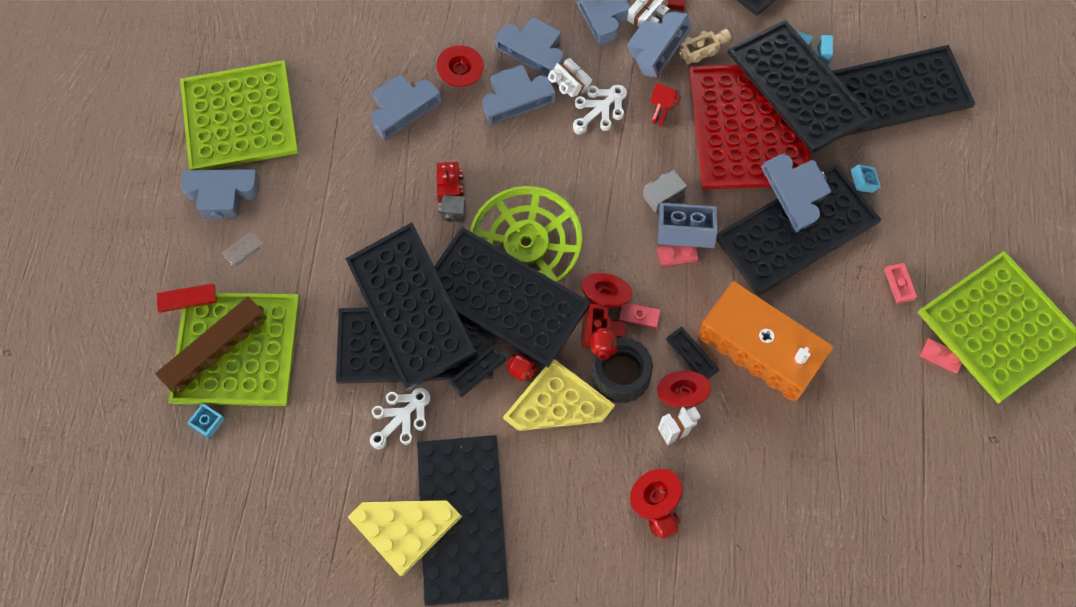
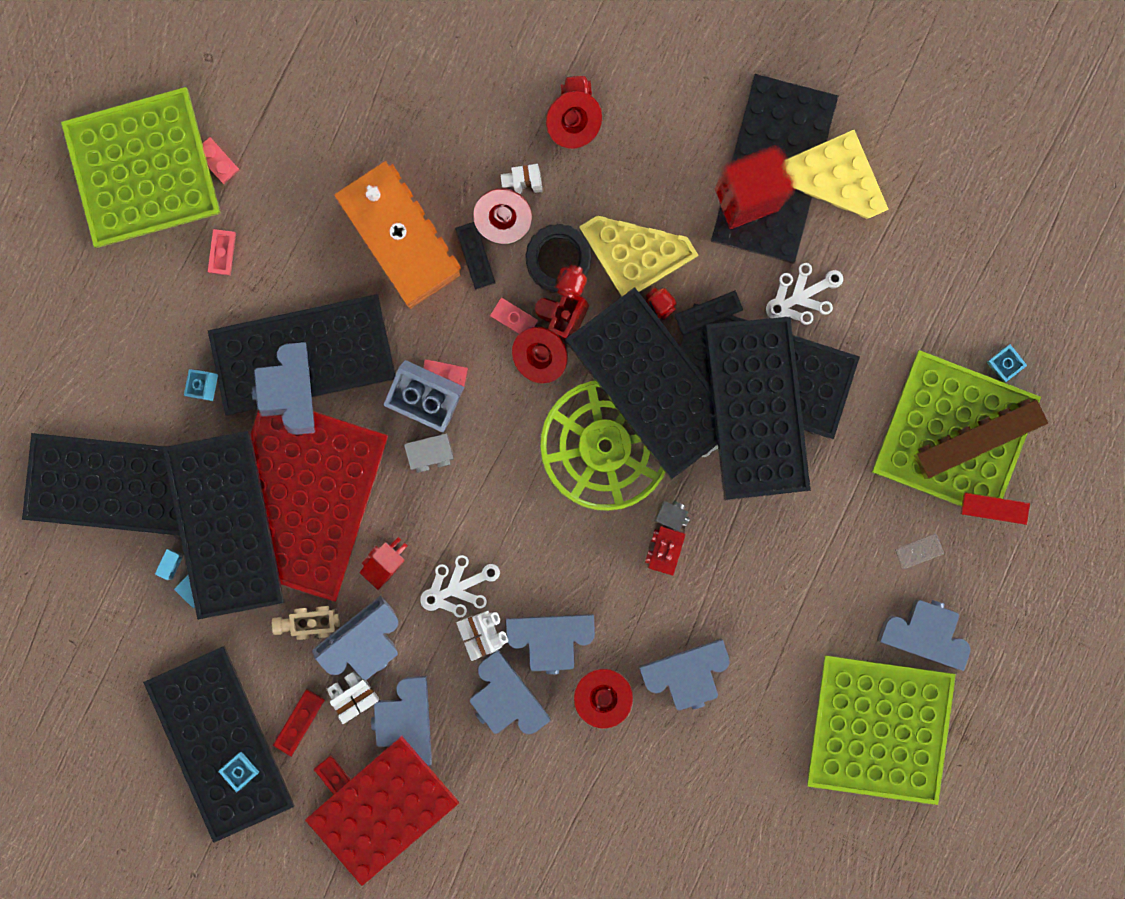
camera: 160 degrees left, 20 degrees up
(472, 462) = (754, 187): none -> red brick

